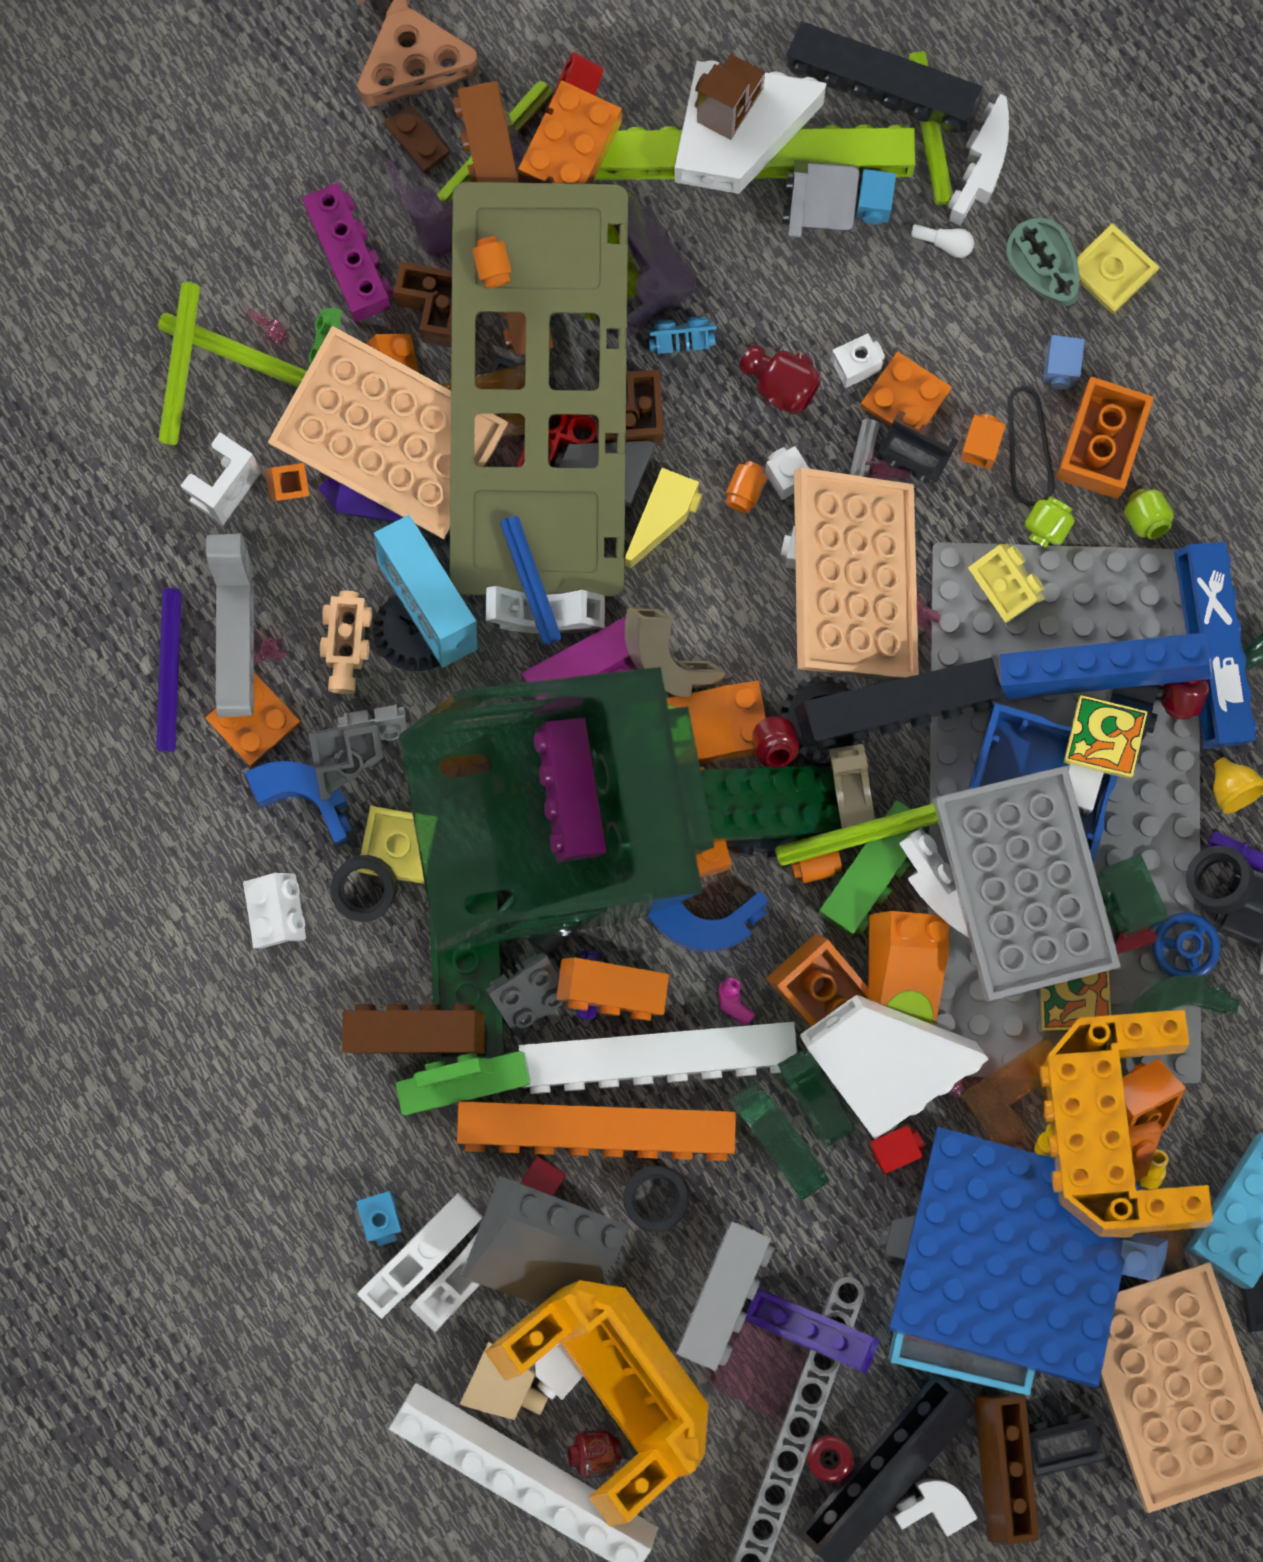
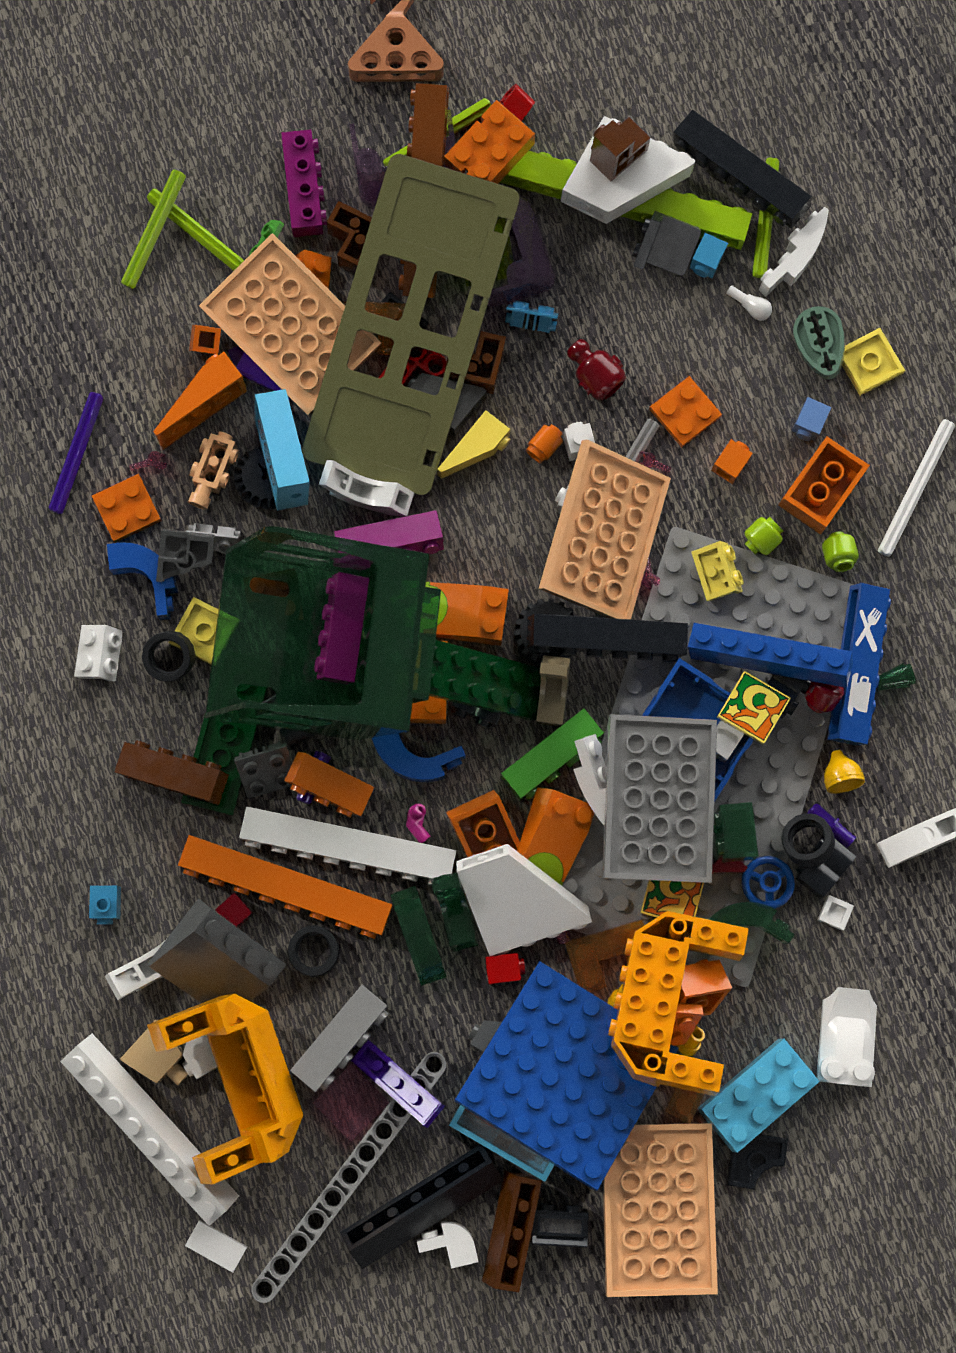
camera: 10 degrees right, 0 degrees up
(230, 487) = (161, 330): white panel -> none
(234, 624) = (132, 438): light grey beam -> none
(275, 331) = (232, 226): clear pink hand -> none
(314, 544) = (209, 392): none -> orange slope
(417, 138) = (381, 114): reddish brown plate -> none
(420, 1255) = (125, 940): white slope -> none
(462, 1081) = (196, 820): bright green bracket -> none
(492, 262) = (402, 219): orange brick -> none
(530, 580) = (361, 464): blue axle -> none
(594, 1453) = (209, 1126): dark red head -> none
(648, 646) = (432, 538): dark tan arch -> none
(775, 741) = (505, 637): dark red head -> none
(817, 867) = (510, 737): orange brick -> none
(817, 1460) = (372, 1183): dark red head -> none
(856, 835) = (544, 725): lime axle -> none
(857, 360) = (657, 373): white brick -> none
(916, 450) = (679, 453): black window -> none
(1012, 444) = (754, 471): black piece -> none
(1144, 1256) = (663, 1104): medium blue brick -> none
(1217, 407) = (916, 488): none -> white axle

